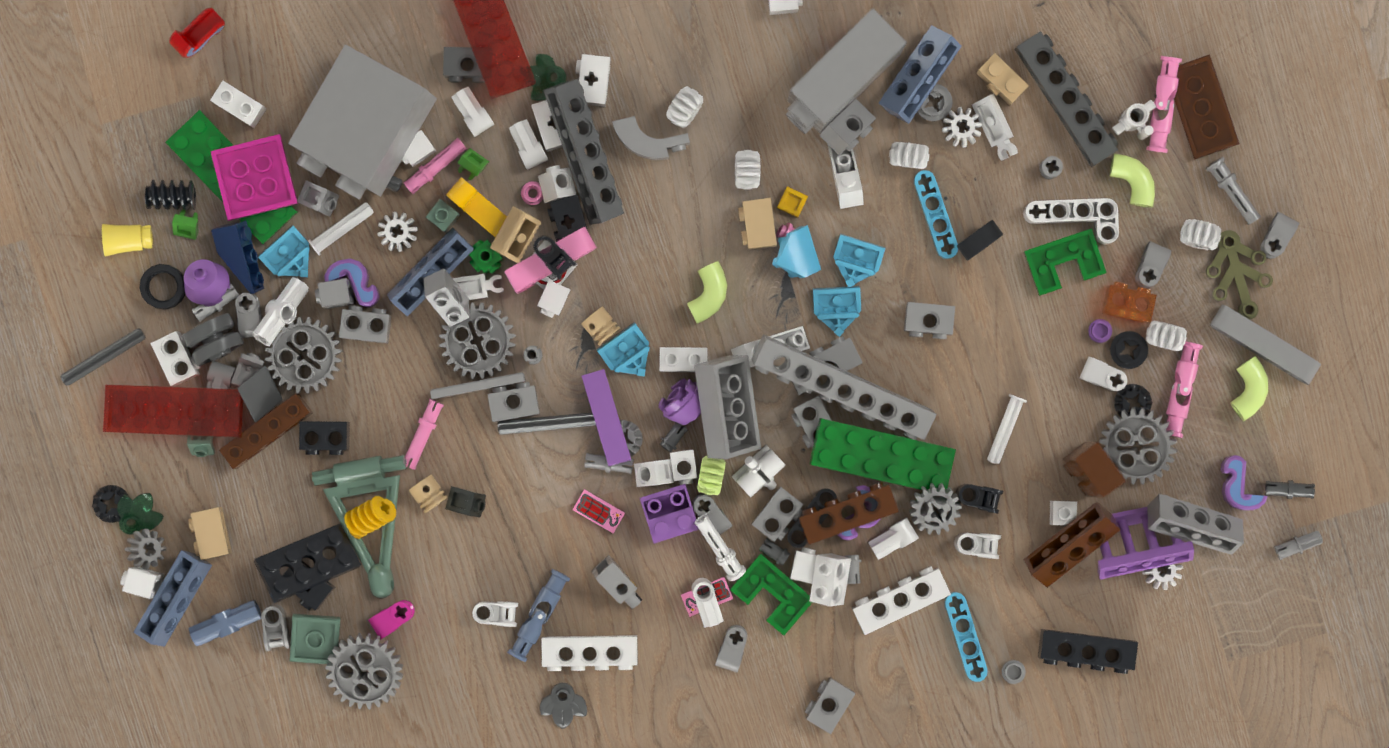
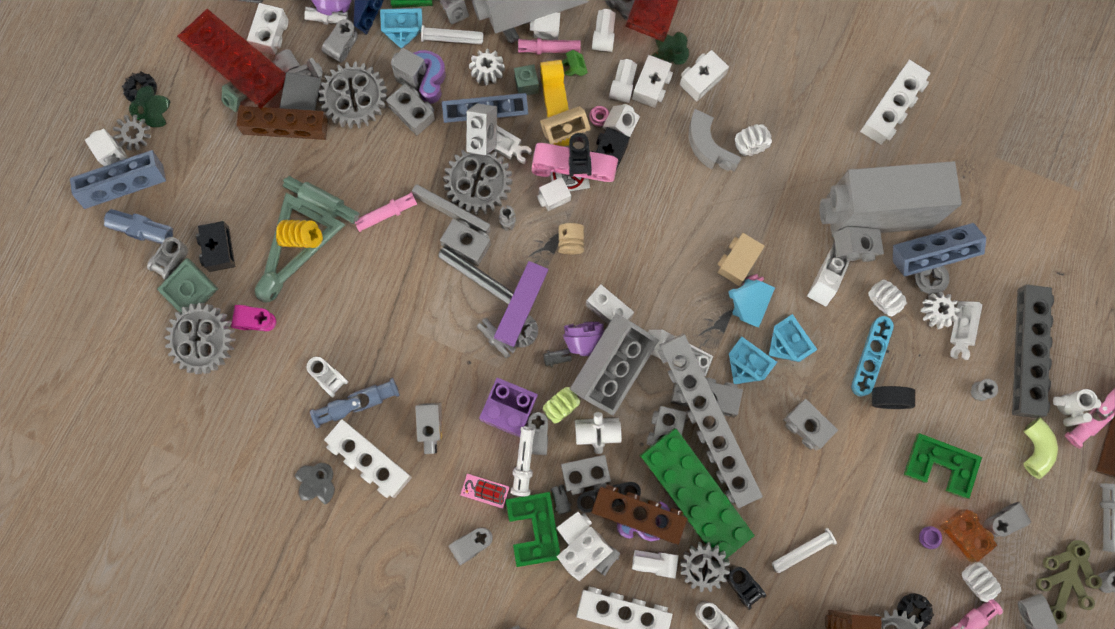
camera: 35 degrees right, 10 degrees down
(210, 533) = (184, 158): tan brick -> none
(213, 342) = (301, 32): dark grey wheel -> none
(280, 311) = (351, 53): white piece -> none
(306, 578) = (216, 238): black plate -> none
(324, 430) = (321, 155): black brick -> none
(430, 499) = (353, 254): tan piece -> none
(466, 502) = (374, 282): pearl dark grey bracket -> none
(490, 265) = (531, 129): green brick -> none
(574, 148) = (650, 116): dark grey brick -> none
(598, 511) = (460, 365): tile -> none
(626, 351) = (574, 272): medium azure slope -> none
(653, 473) = (521, 369): white brick -> none
(687, 456) = (551, 374): white brick -> none
(707, 604) = (480, 496): white piece -> none
(713, 293) = (668, 281): yellowish green cylinder -> none
(747, 169) = (763, 215): white gear -> none
(792, 202) = (775, 265): yellow tile -> none
(1002, 79) = (996, 300): tan brick -> none
(1071, 216) = (973, 437): white beam -> none
(1099, 374) = (907, 570): white piece -> none
(1132, 339) = (949, 562): black gear -> none
(1200, 234) = (1064, 527): white gear -> none

